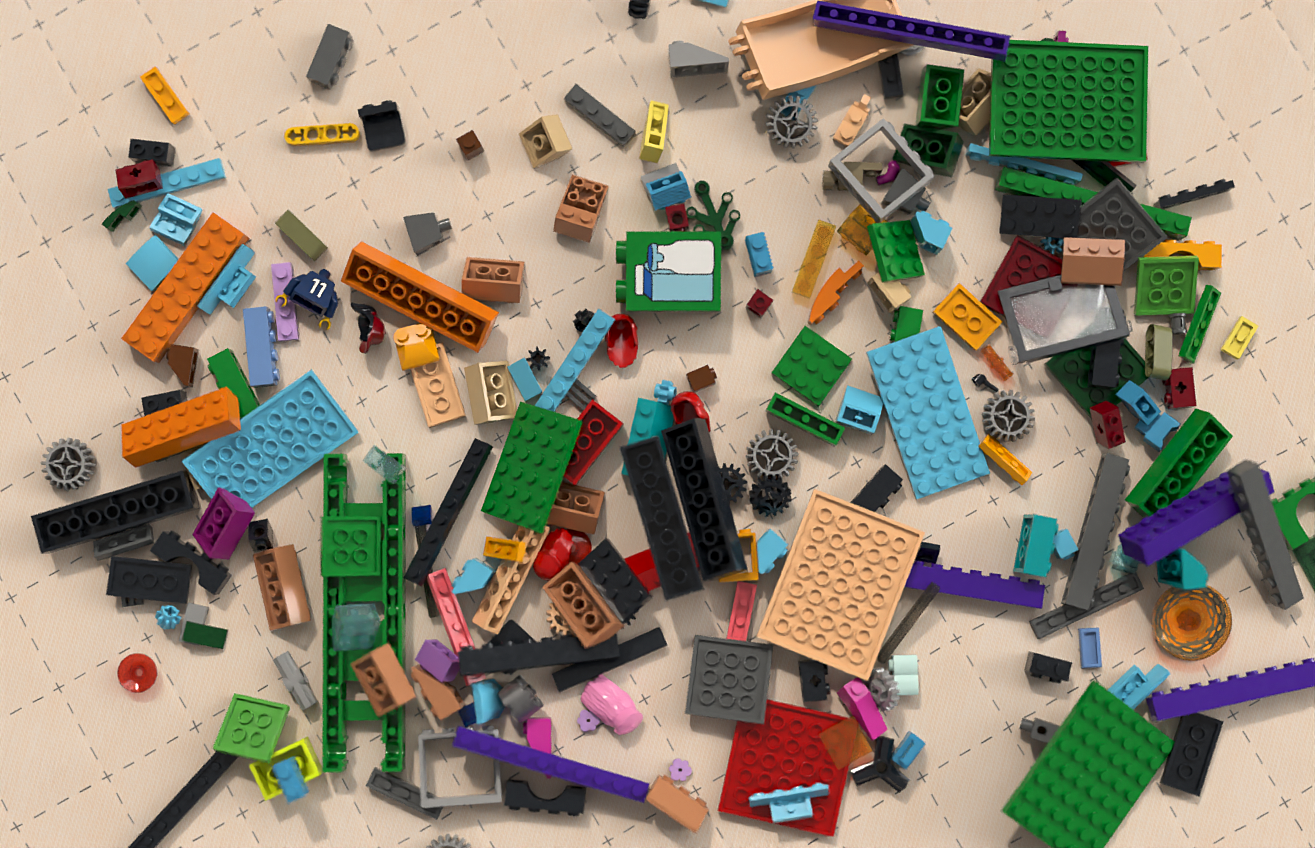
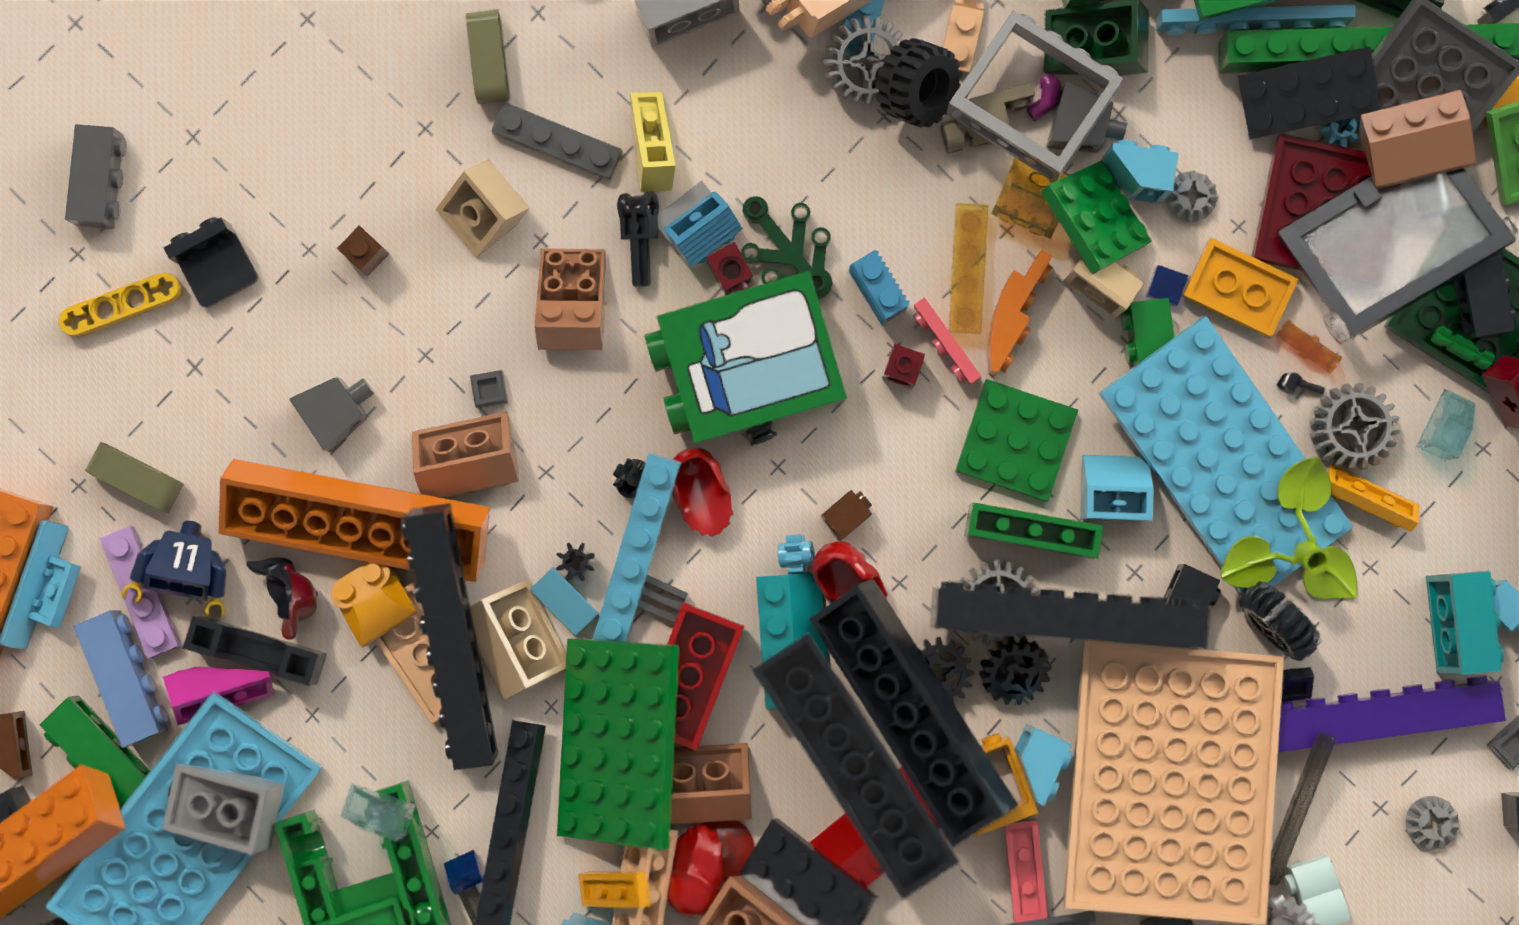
camera: 15 degrees left, 0 degrees up
(297, 436) = (223, 808): none -> light grey slope
(299, 363) = (192, 687): none -> dark pink slope
(341, 354) = (254, 649): none -> black arch
(455, 378) = (450, 635): none -> black brick
(518, 245) = (489, 389): none -> dark grey tile
(574, 54) = (487, 56): none -> olive beam
(632, 178) = (638, 227): none -> black connector
(666, 317) = (761, 433): none -> black bush
(787, 297) = (945, 342): none -> coral plate
(809, 472) = (1067, 617): none -> black brick
(816, 143) = (918, 82): none -> black tyre
(926, 303) = (1167, 284): none -> clear blue tile
(930, 512) = (1280, 621): none -> black gear
(947, 259) = (1202, 207): none -> light grey gear
(967, 494) = (1327, 571): none -> lime plant
(976, 649) = (1419, 815): none -> light grey gear
(1062, 432) = (1448, 426): none -> clear light blue slope
(1083, 389) = (1462, 347): none -> green axle

